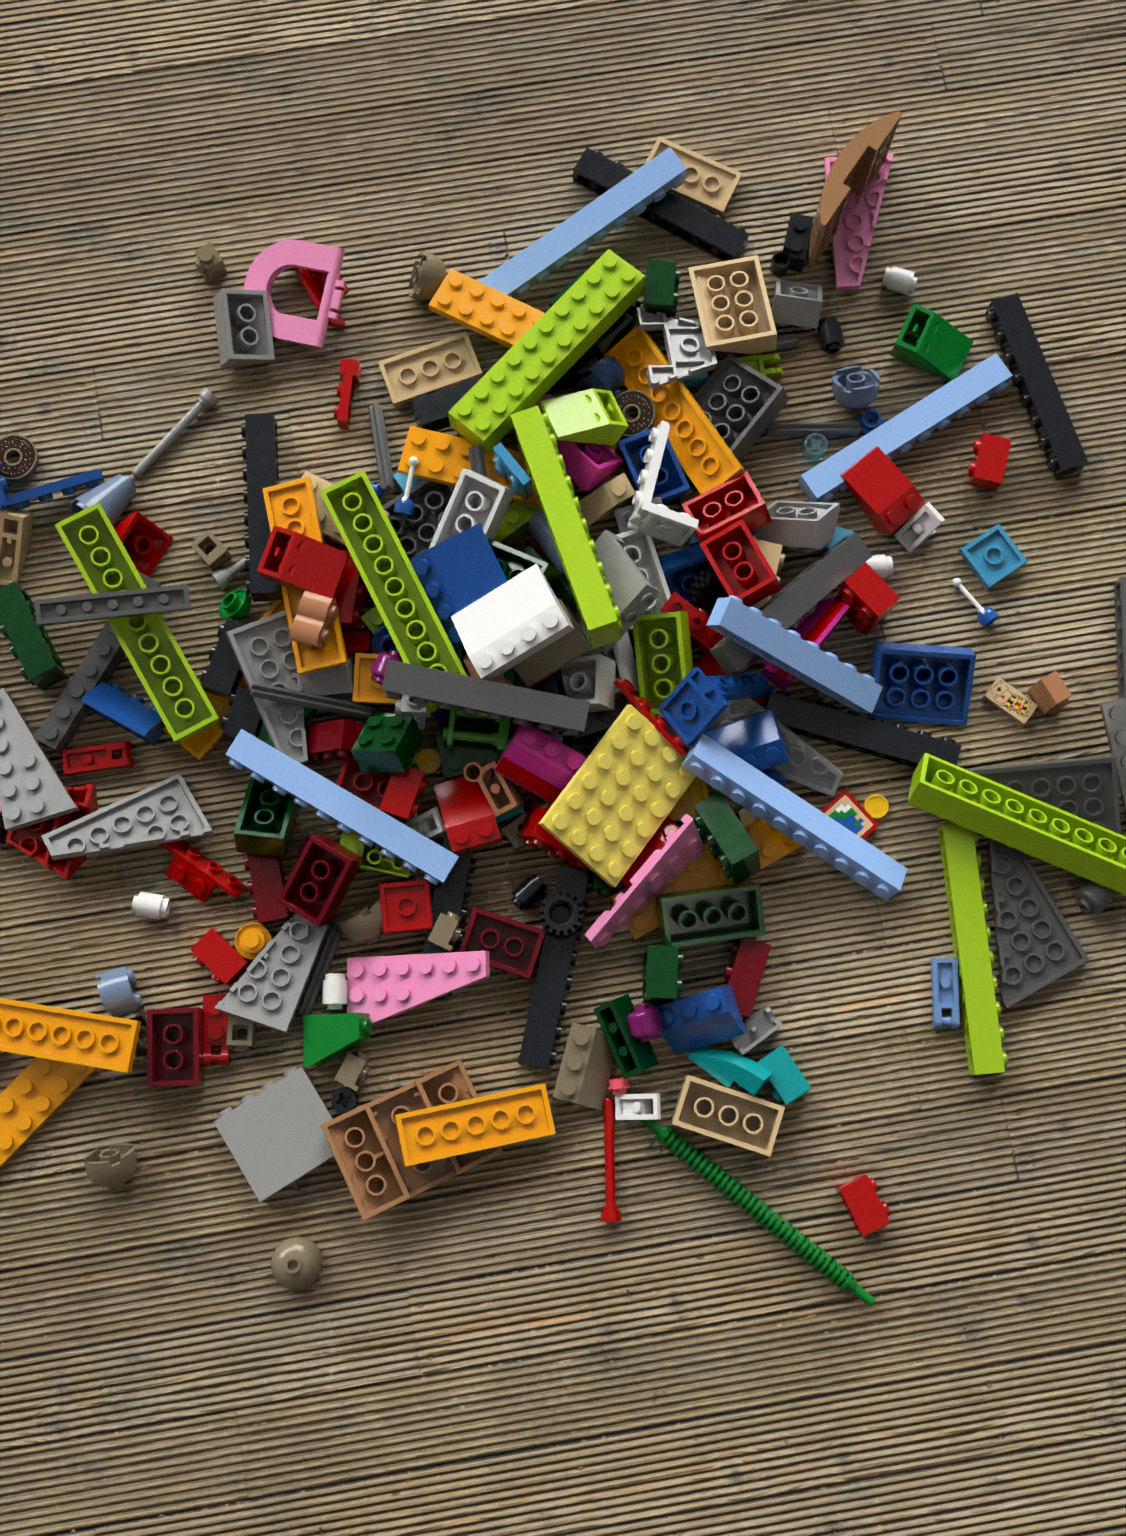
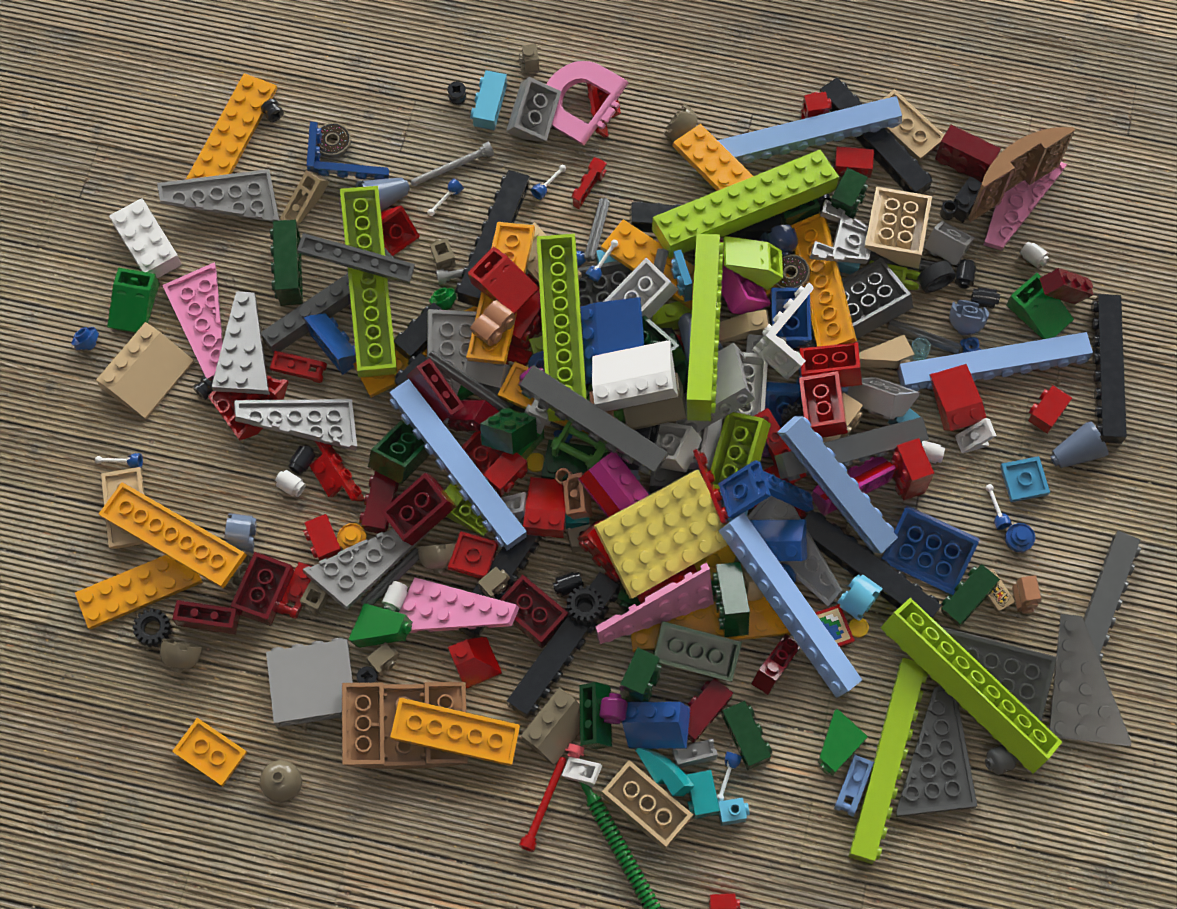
camera: 25 degrees right, 10 degrees down
(49, 1147) = (144, 619): none -> black tyre
(123, 1109) = (206, 617): none -> dark red brick
(141, 345) = (457, 97): none -> black wheel
(152, 870) = (301, 459): none -> black brick
(183, 334) = (489, 100): none -> medium azure brick
(188, 462) = (454, 187): none -> hinge
(198, 1265) = (209, 752): none -> light orange plate
(278, 729) = (435, 390): none -> dark red brick
(292, 424) = (540, 190): none -> blue hinge
(430, 368) = (655, 187): tan plate -> none
(460, 1028) = (474, 661): none -> red slope
(576, 194) = (815, 104): none -> red brick
(648, 244) = (855, 159): none -> red brick
(776, 186) = (966, 153): none -> dark red brick
(783, 467) = (888, 354): none -> tan slope
(800, 352) = (936, 276): none -> black tyre
(800, 1022) = (731, 761): none -> hinge
(803, 889) = (776, 664): none -> dark red slope
(804, 985) = (746, 735): none -> dark green brick
(825, 1080) = (733, 811): none -> medium azure brick
(864, 354) = (985, 297): none -> black brick
(867, 773) = (860, 597): none -> medium azure brick
(910, 952) = (840, 743): none -> green slope
(954, 306) = (1066, 286): none -> dark red brick
(986, 719) = (969, 594): none -> dark green brick
(1014, 628) = (1020, 537): none -> blue plate
(1041, 494) = (1080, 447): none -> sand blue cone

